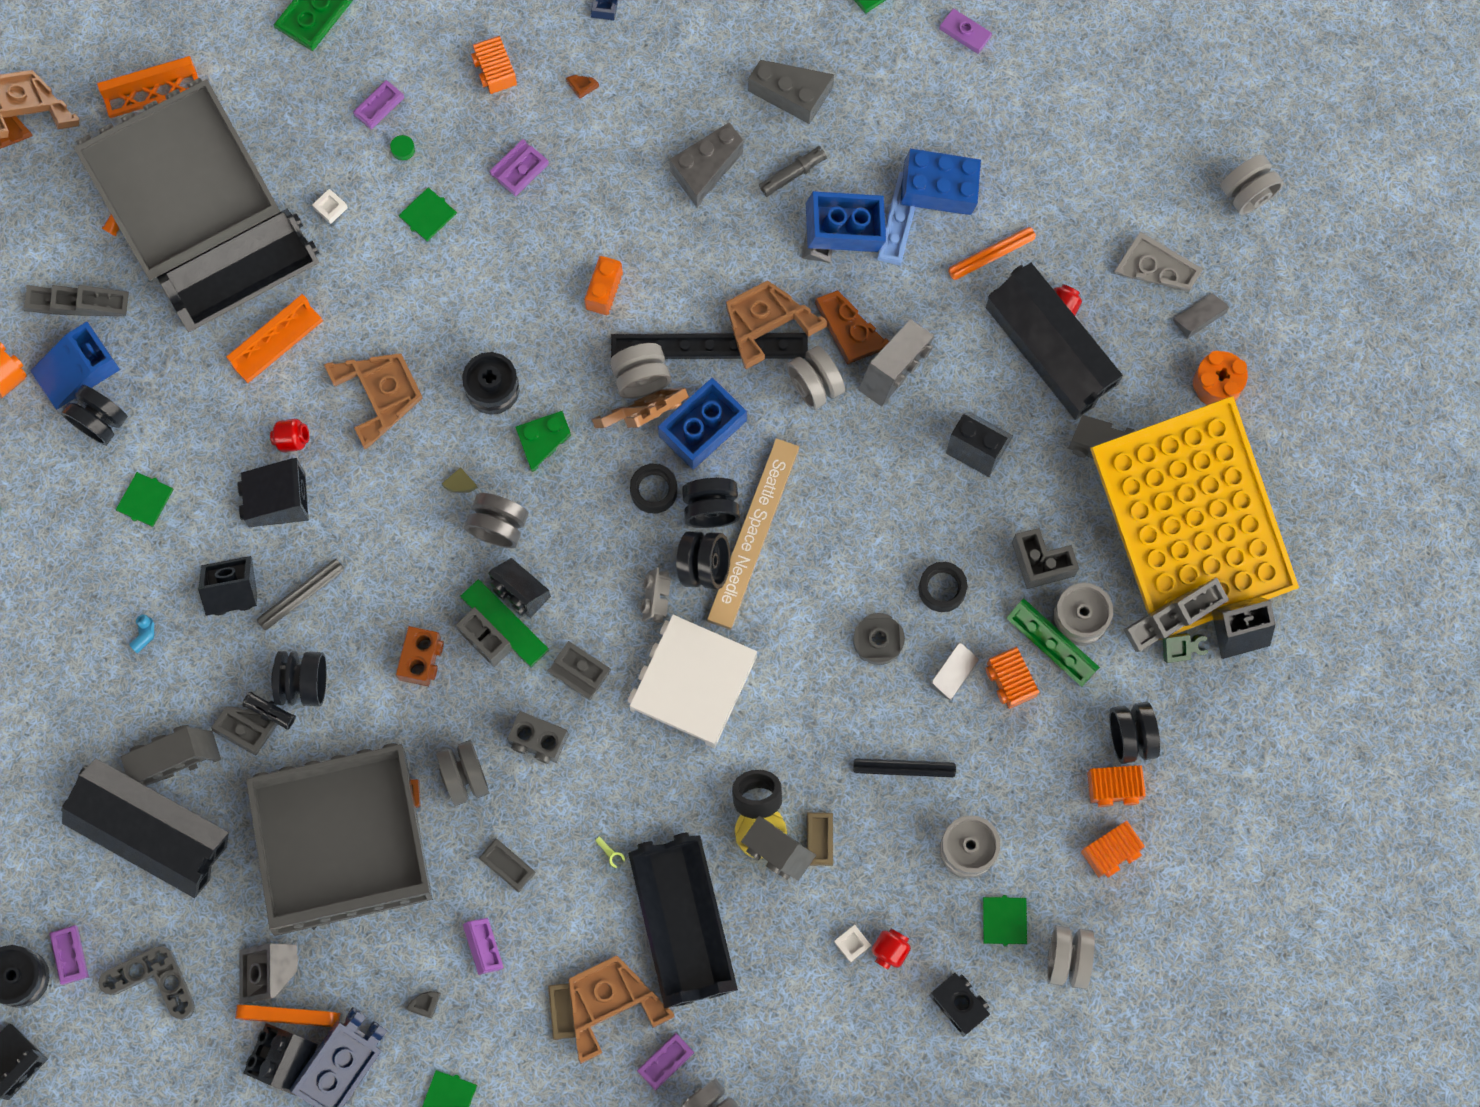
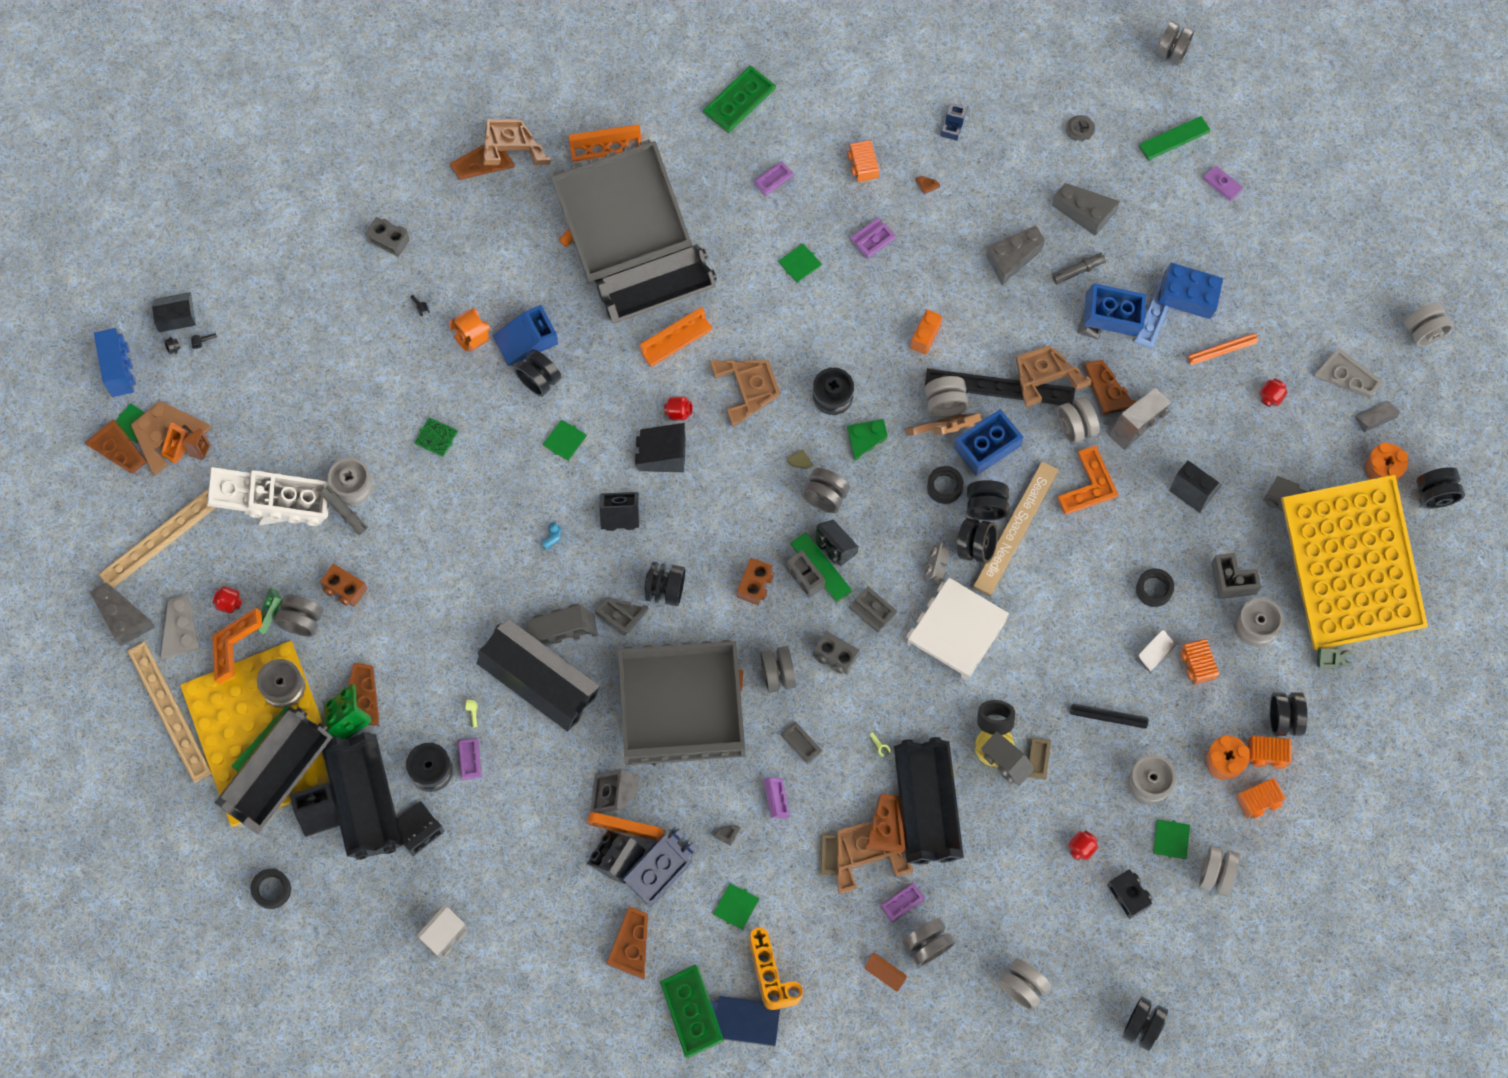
camera: 10 degrees right, 5 degrees down
(64, 882) = (472, 706): none -> yellowish green hand
(76, 301) = (532, 290): dark grey slope -> none
(160, 972) = (535, 781): dark grey beam -> none
(268, 710) = (639, 604): black pin -> none
(300, 594) = (671, 524): dark grey axle -> none
(329, 206) = (728, 247): white plate -> none
(402, 147) = (787, 212): green tile -> none
(632, 963) = (887, 825): none -> dark orange wing
(852, 943) = (1054, 838): white plate -> none
(857, 462) = (1101, 485): none -> orange plate
(869, 650) = (1109, 612): dark grey plate -> none
(1052, 642) = (1233, 640): green tile -> none
(1053, 340) = (1261, 418): black panel -> none
(1077, 799) = (1235, 750): none -> orange brick
(1176, 614) = (1331, 632): dark grey slope -> none
(1244, 626) = (1382, 649): black slope -> none
(1293, 401) = (1440, 488): none -> black wheel

